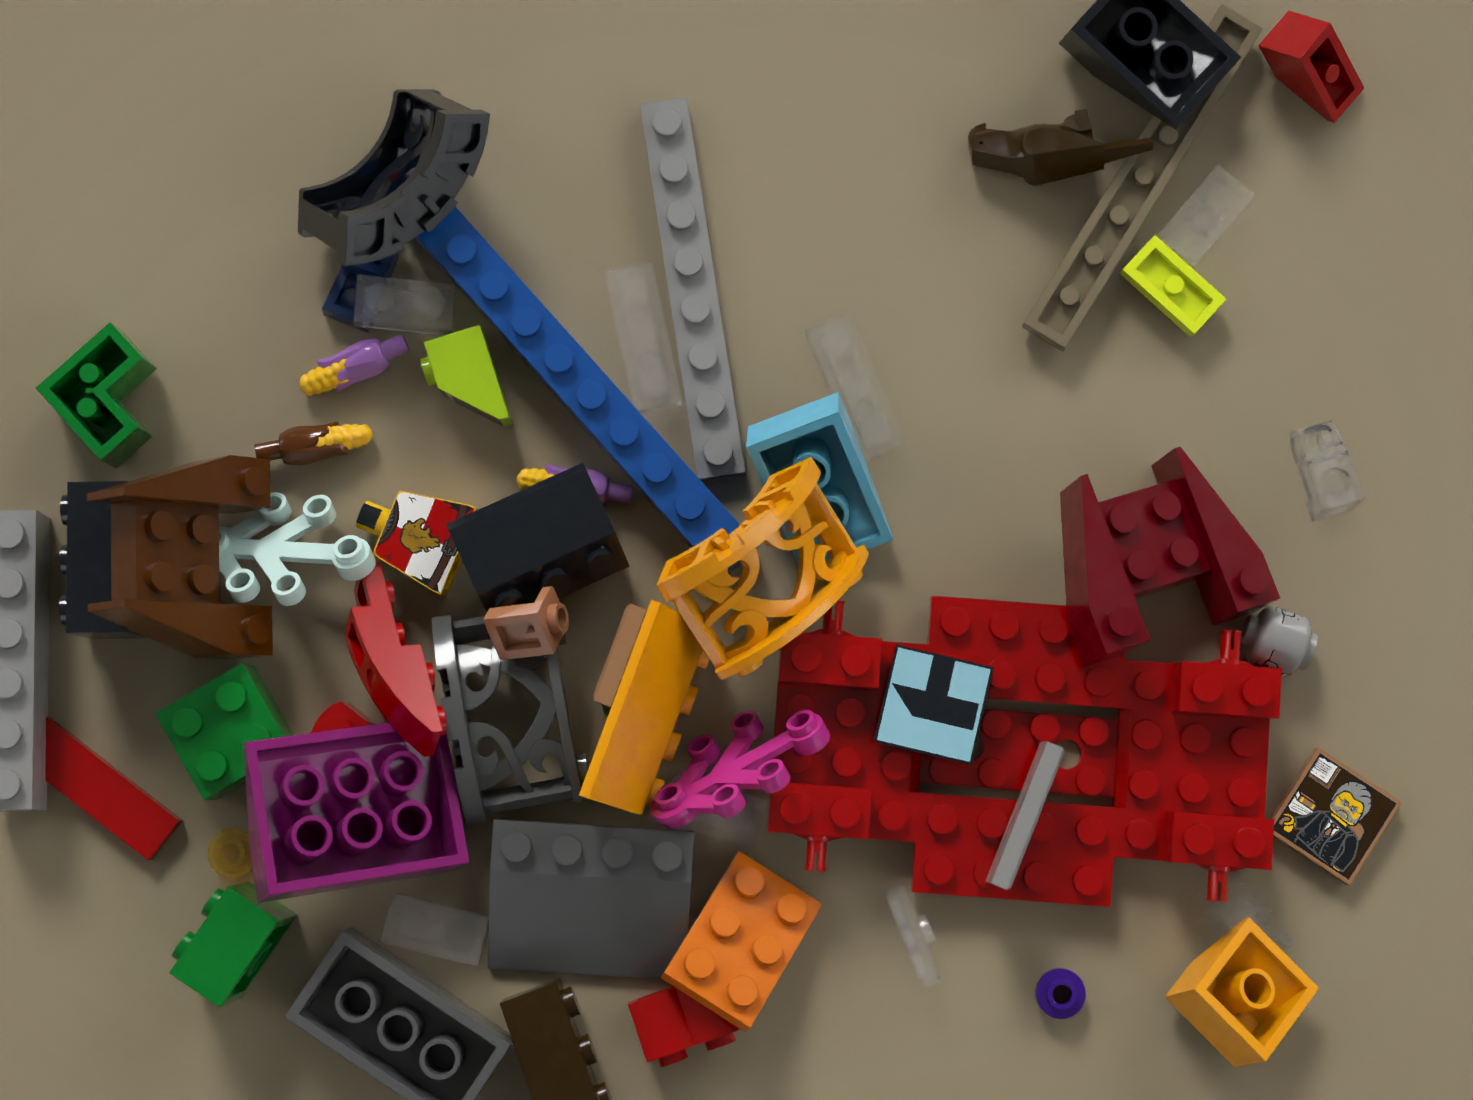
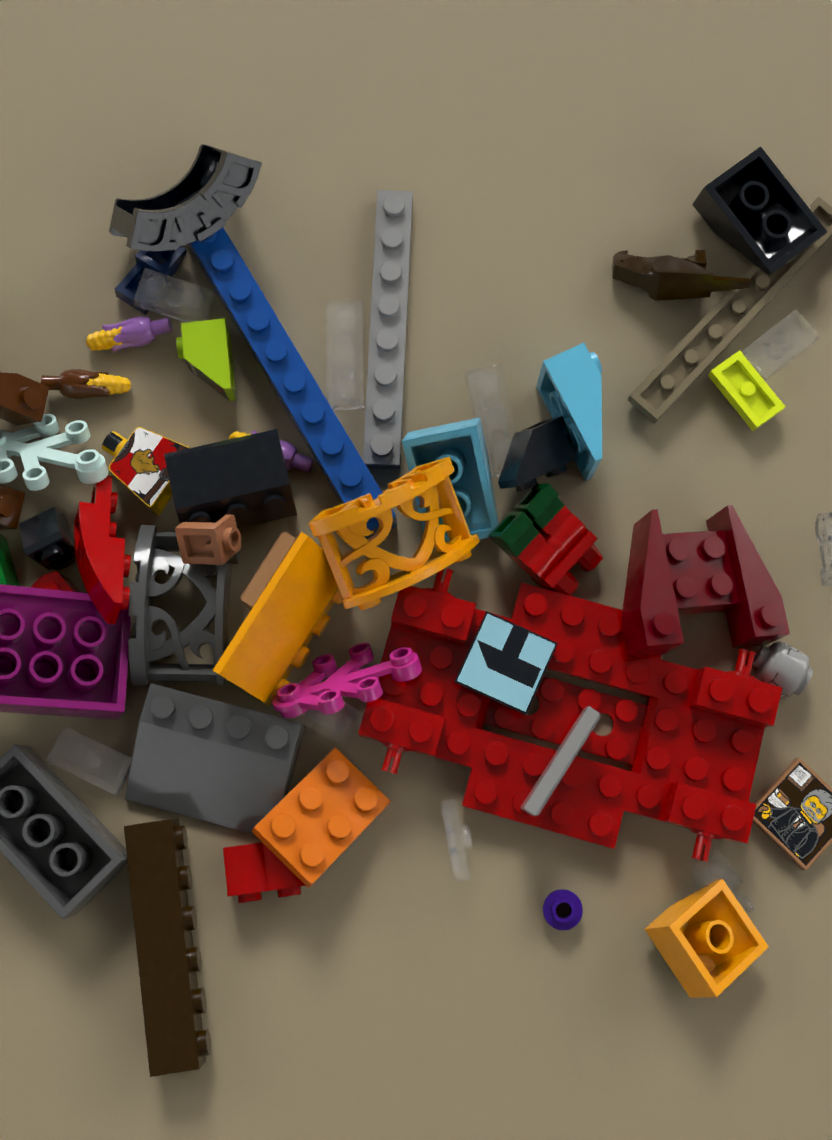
camera: 15 degrees right, 5 degrees down
(318, 660) = (48, 539): none -> black slope
(918, 424) = (535, 452): none -> black slope
(956, 346) = (573, 389): none -> medium azure slope
(972, 536) = (547, 540): none -> red hips

